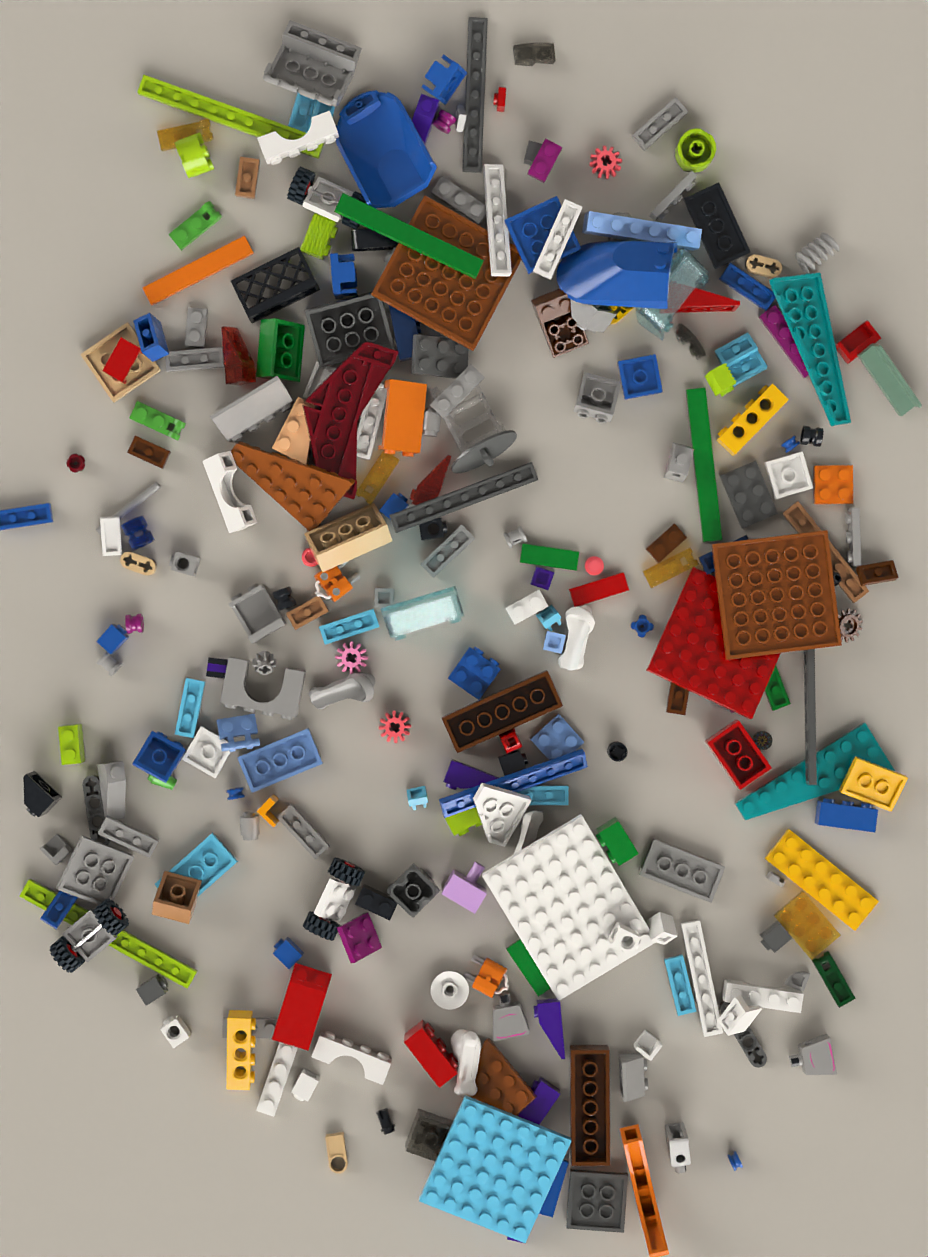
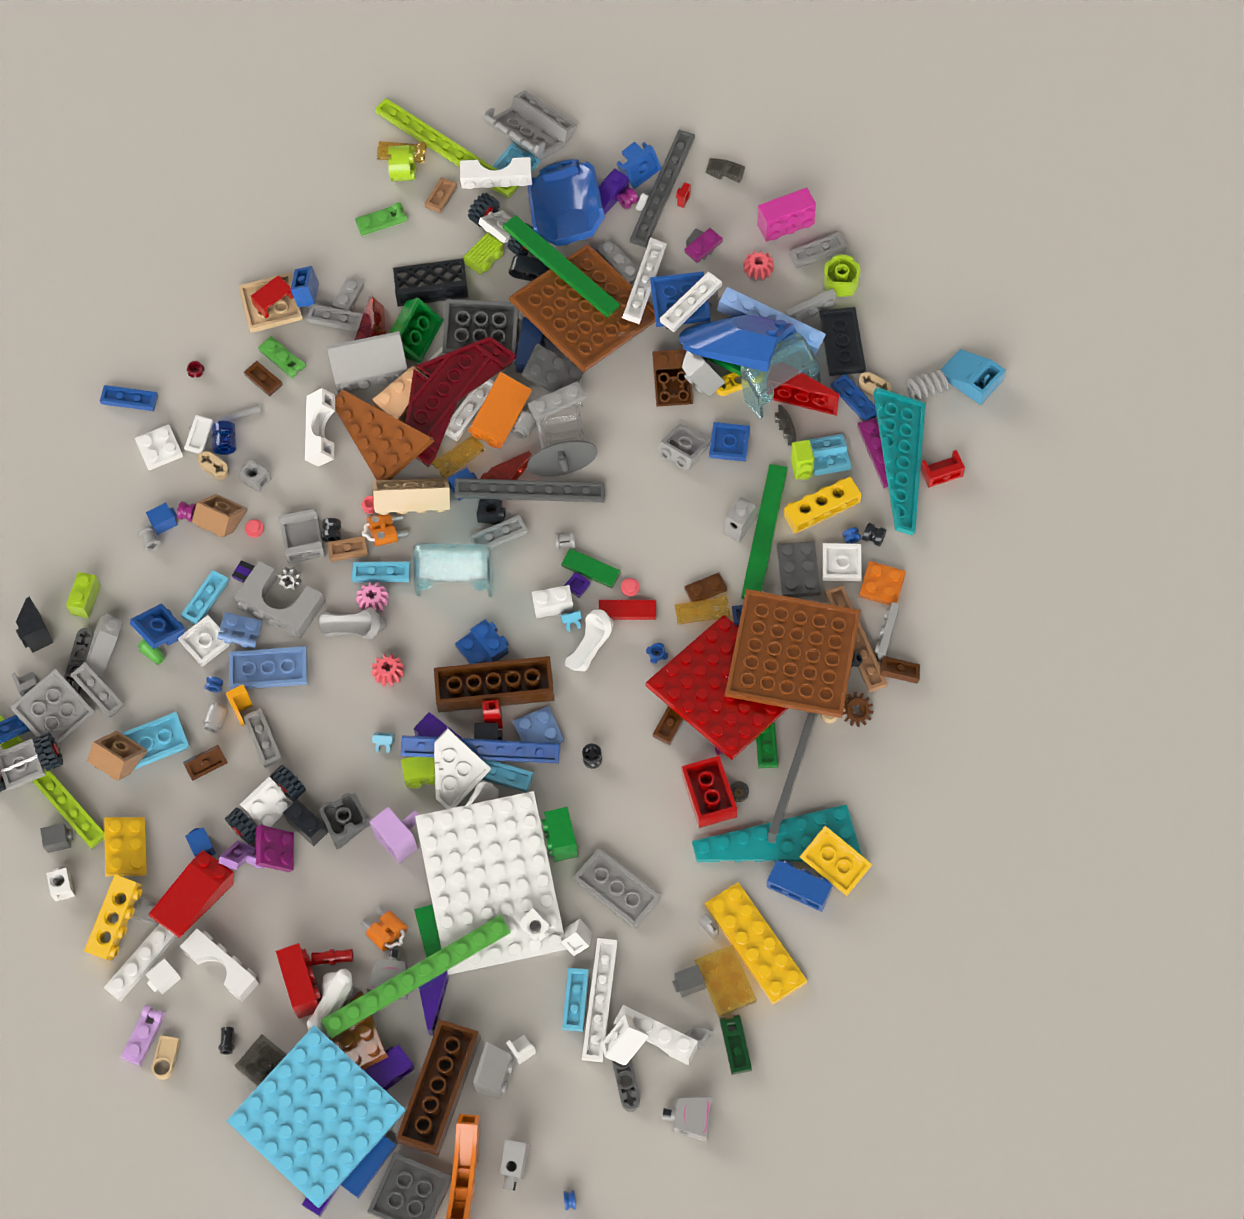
camera: 20 degrees right, 25 degrees down
(75, 560) = (158, 447): none -> white plate
(167, 616) = (218, 515): none -> medium nougat slope
(198, 270) = (368, 253): orange tile -> none
(207, 619) = (254, 528): none -> coral plate
(219, 977) = (125, 846): none -> yellow plate
(259, 873) = (205, 762): none -> reddish brown plate
(309, 1140) = (143, 1036): none -> lavender plate
(328, 953) = (239, 854): none -> medium lavender plate
(343, 275) = (490, 282): blue panel -> none
(447, 999) = (342, 920): white dish -> none
(449, 1016) = (332, 957): none -> red pin
(535, 1018) = (415, 976): none -> bright green plate
(554, 642) = (567, 641): light blue plate -> none
(618, 95) = (786, 214): none -> dark pink brick
(858, 225) = (973, 375): none -> dark azure slope
(888, 379) = (962, 504): sand green panel -> none

